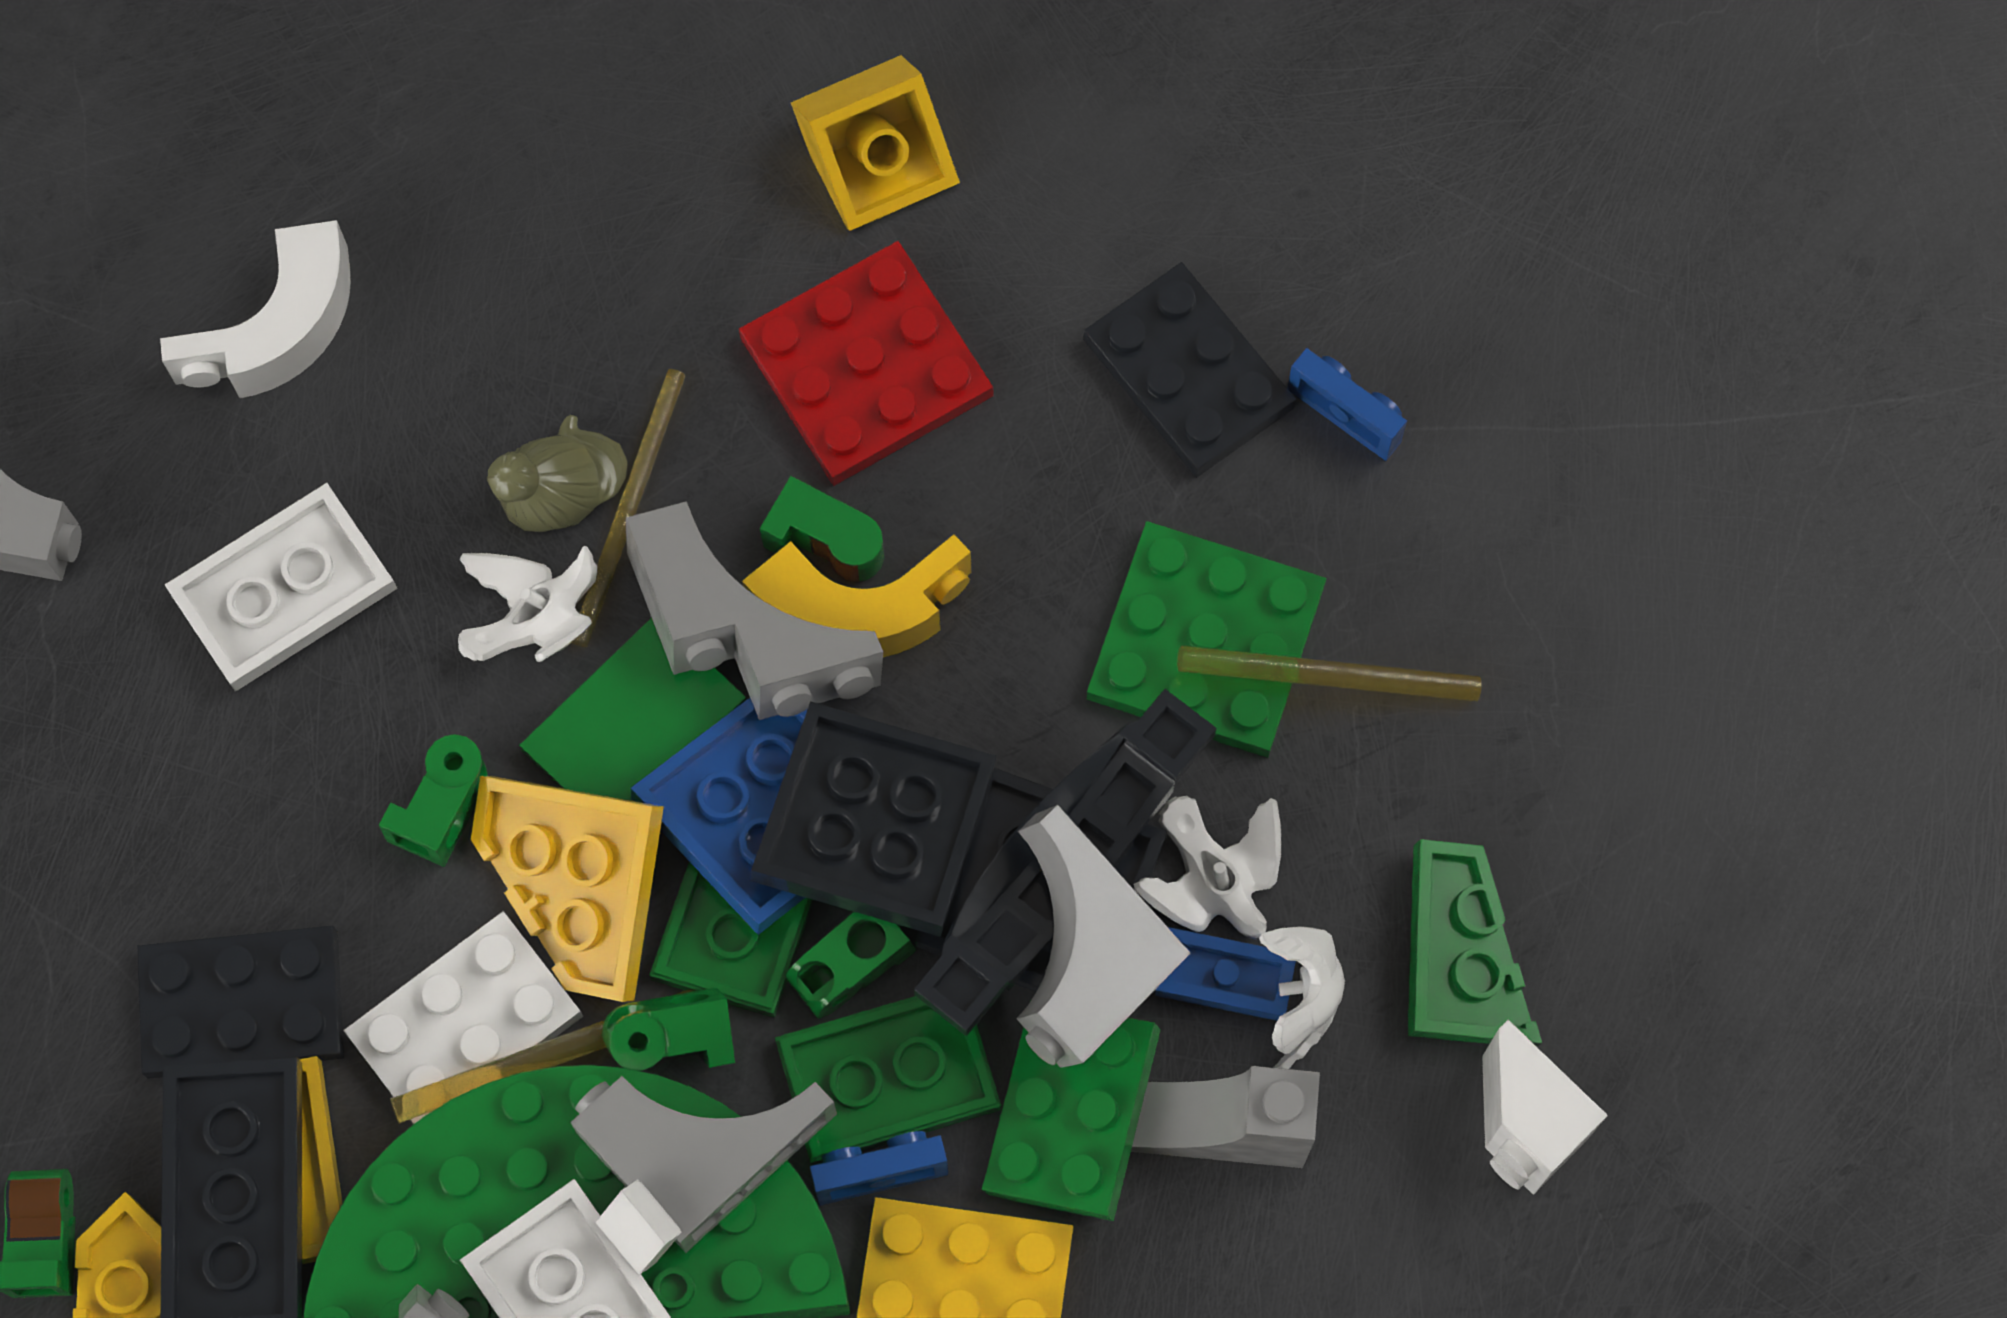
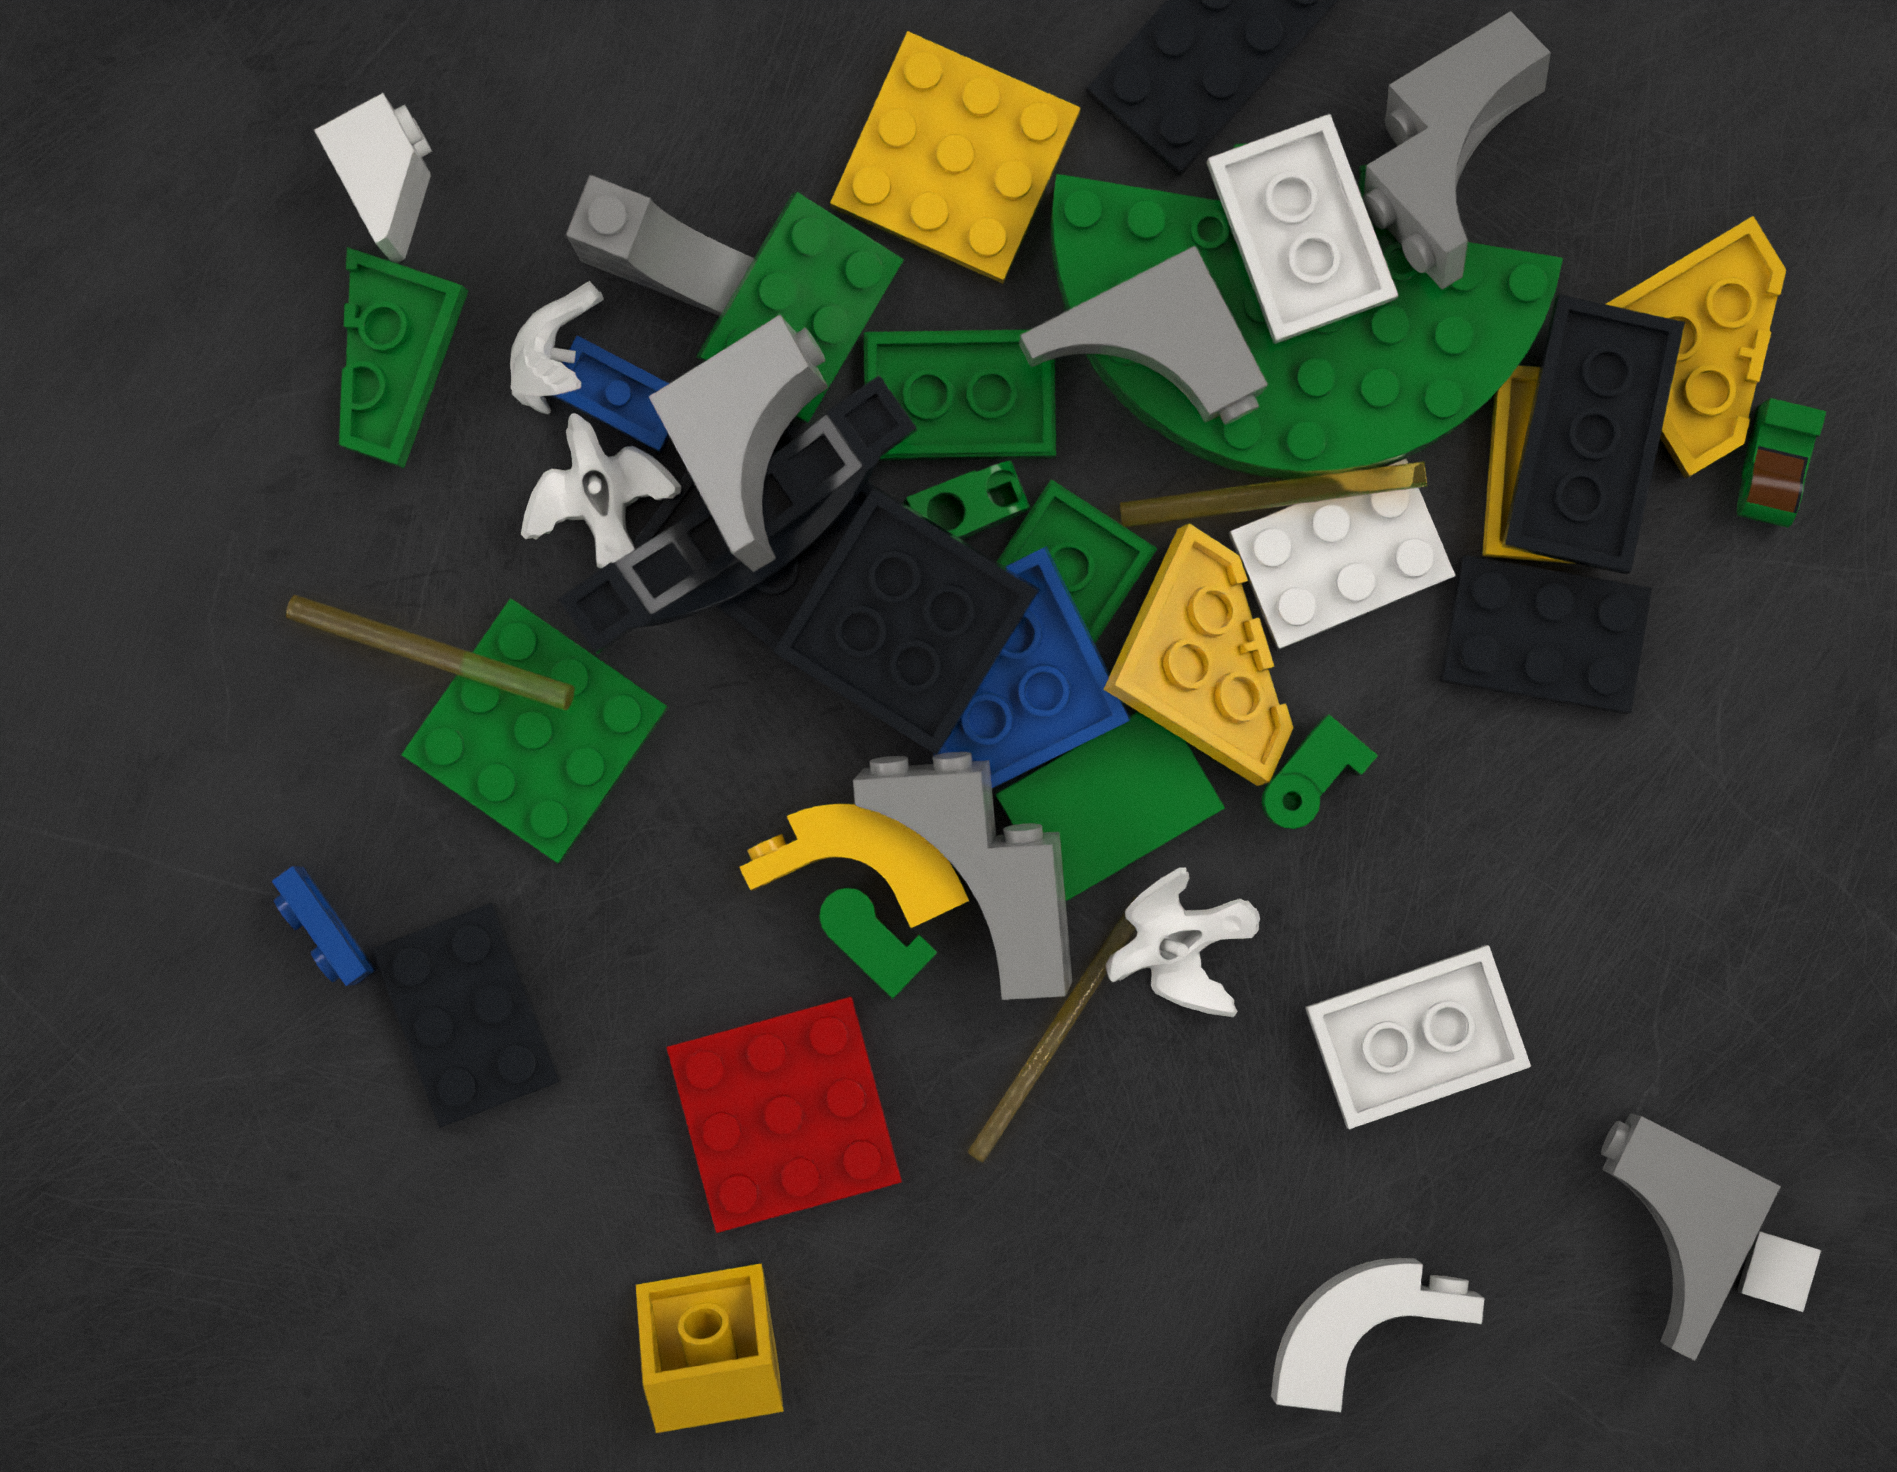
camera: 165 degrees left, 15 degrees up
(557, 478) = (1118, 1074): olive hair -> none
(638, 1226) = (1228, 270): white tile -> none
(670, 1026) = (1151, 481): green leg -> none
(906, 1161) = (965, 302): blue plate -> none

